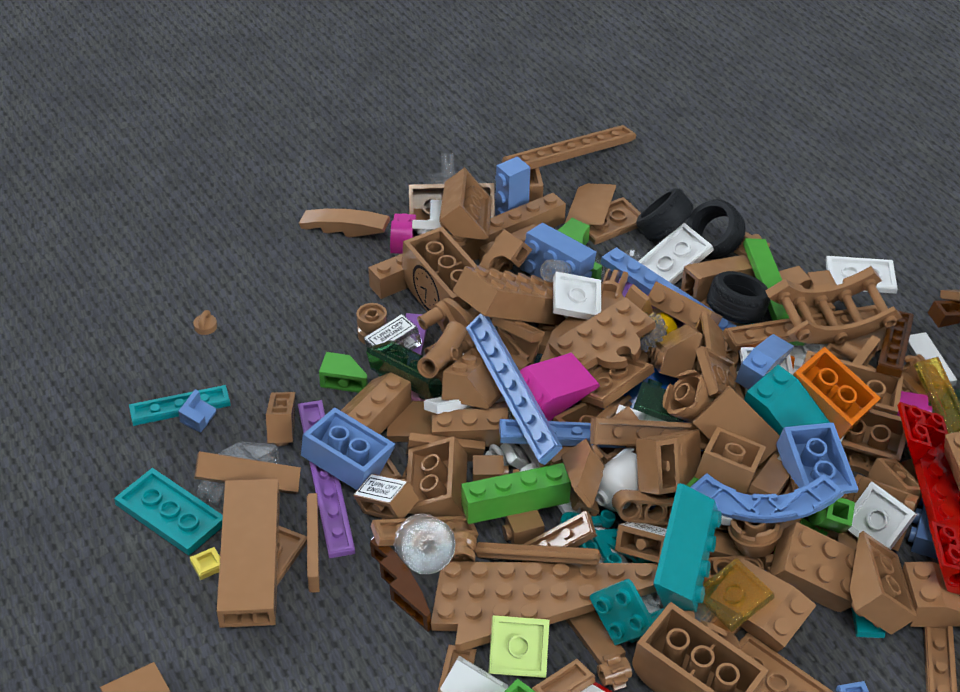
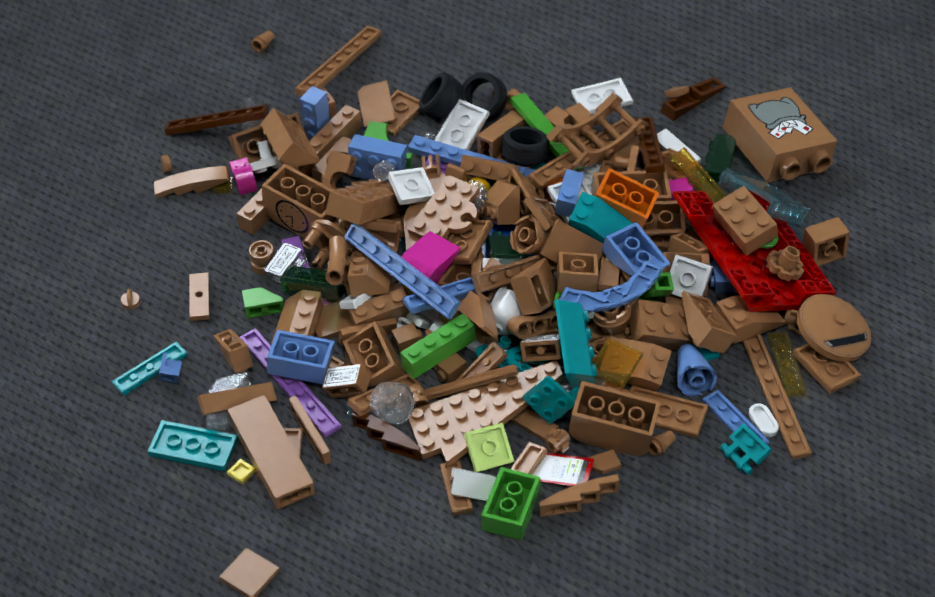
camera: 20 degrees left, 5 degrees up
(280, 344) = (199, 296): none -> tile
(328, 196) = (166, 164): none -> medium nougat tile
(378, 239) = (224, 187): none -> clear yellow tile
(405, 167) = (217, 119): none -> reddish brown tile
(501, 108) = (262, 41): none -> medium nougat cone
(838, 644) = (694, 371): none -> medium blue cone

